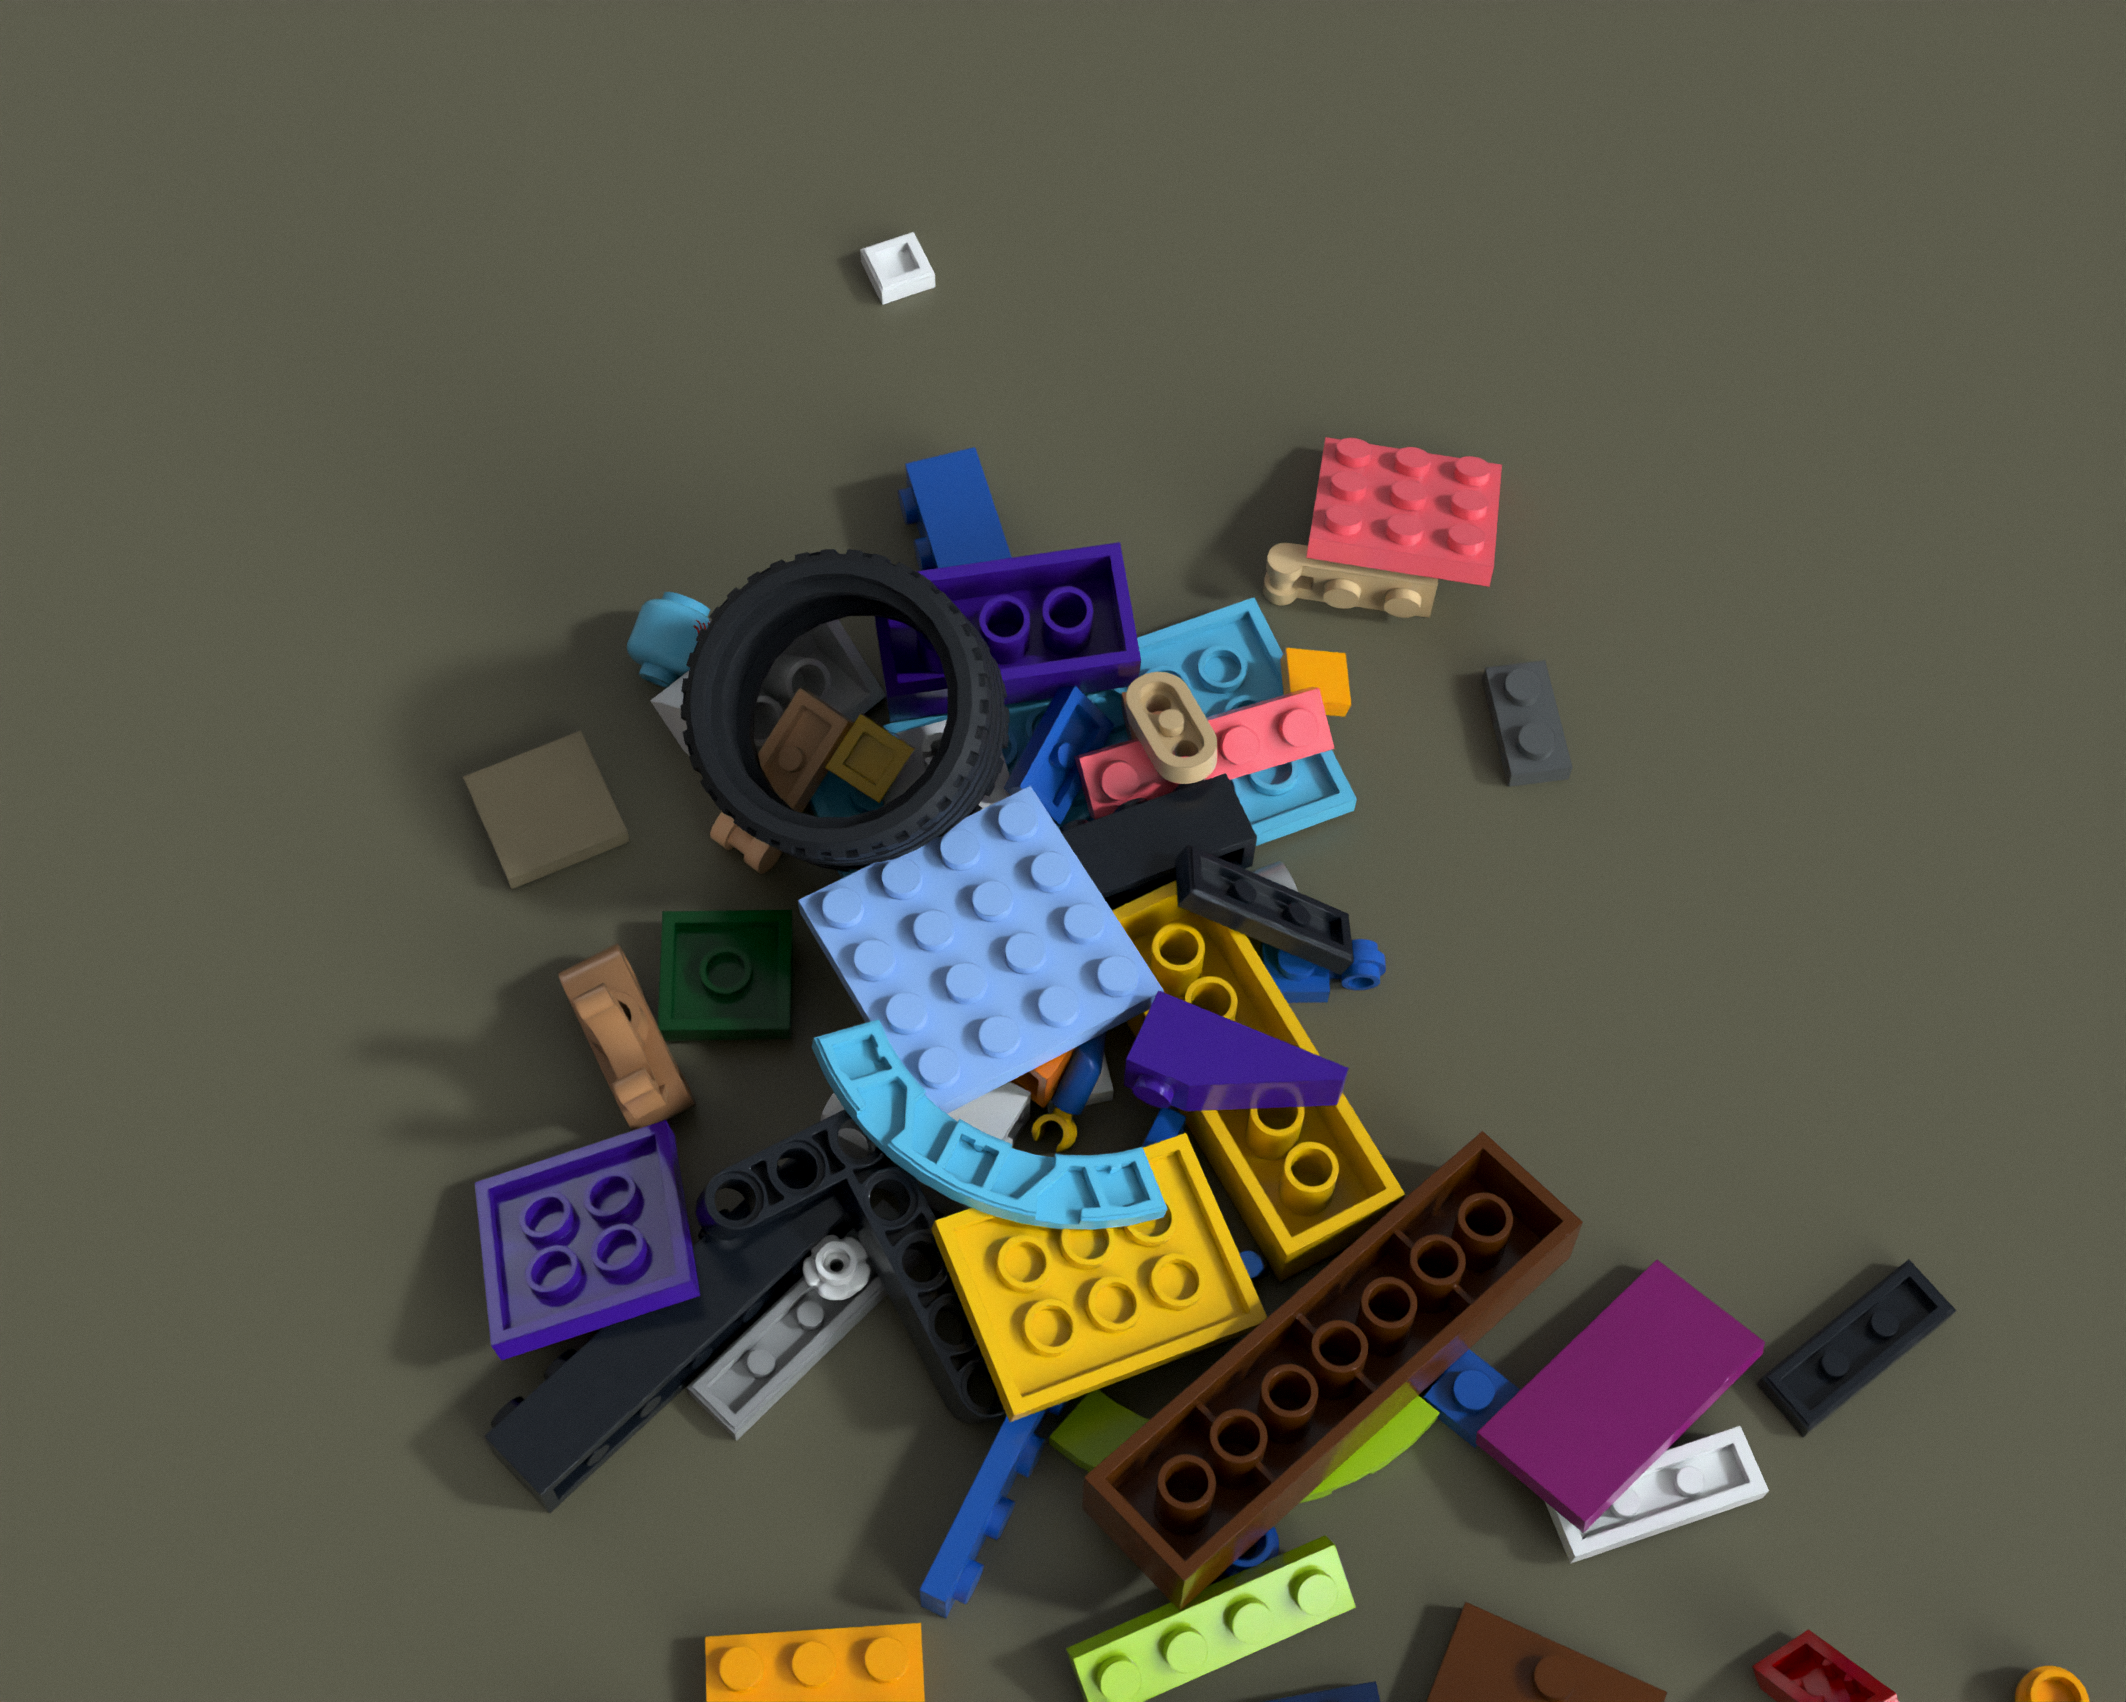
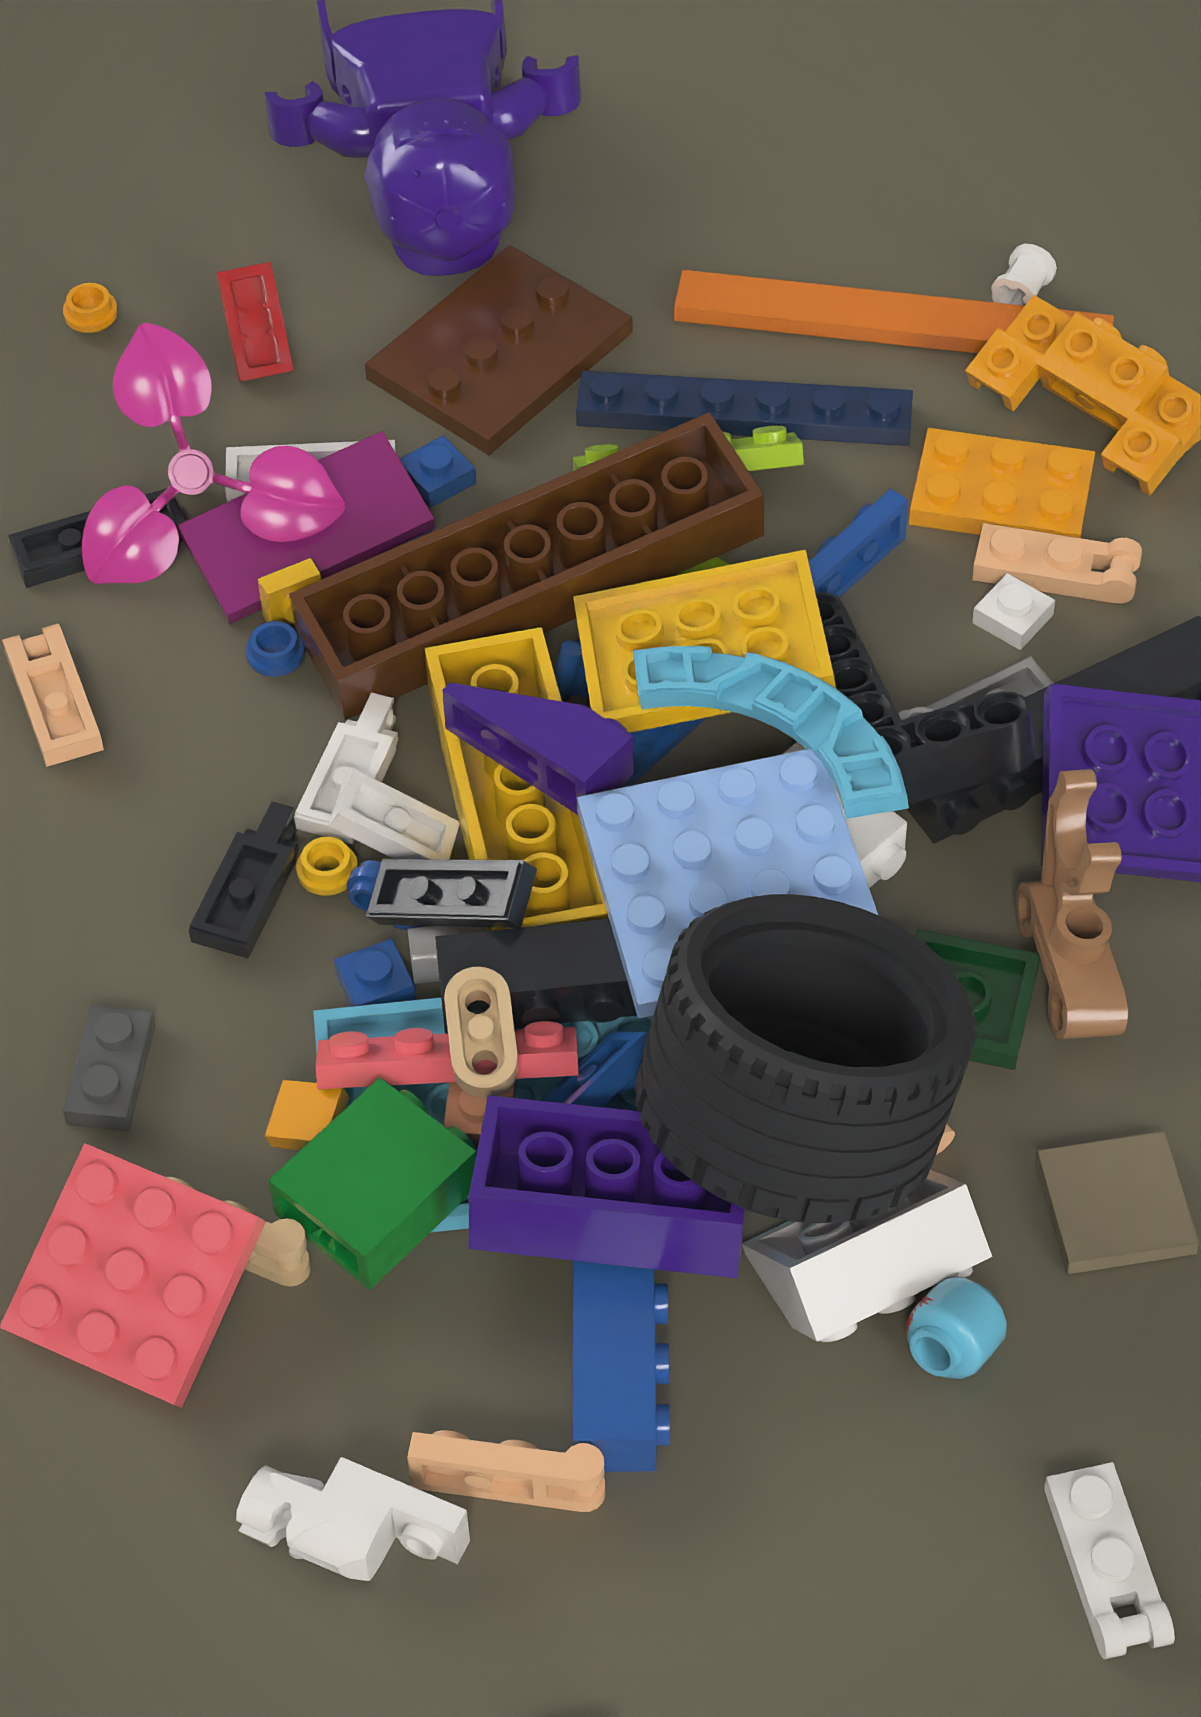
camera: 160 degrees left, 10 degrees down
(512, 499) = (1107, 1560): none -> white plate
(729, 1595) = (1059, 563): none -> light nougat plate
(767, 1508) = (1013, 611): none -> white plate
(1032, 436) = (508, 1471): none -> light nougat plate
(1138, 378) = (350, 1519): none -> white plate
(1224, 615) = (375, 1181): none -> green brick
(1321, 866) = (374, 975): none -> blue plate
(1363, 1011) = (391, 820): none -> white plate
(1415, 959) = (324, 854): none -> yellow plate
(1434, 1084) = (357, 745): none -> white hinge
(1481, 932) = (247, 884): none -> black hinge
(1511, 1549) = (439, 471): none -> blue plate
(1593, 1292) = (277, 585): none -> yellow plate
(1597, 1233) = (274, 649): none -> blue plate
(1794, 1109) = (53, 695): none -> light nougat plate
(1851, 1411) = (135, 543): none -> dark pink plant

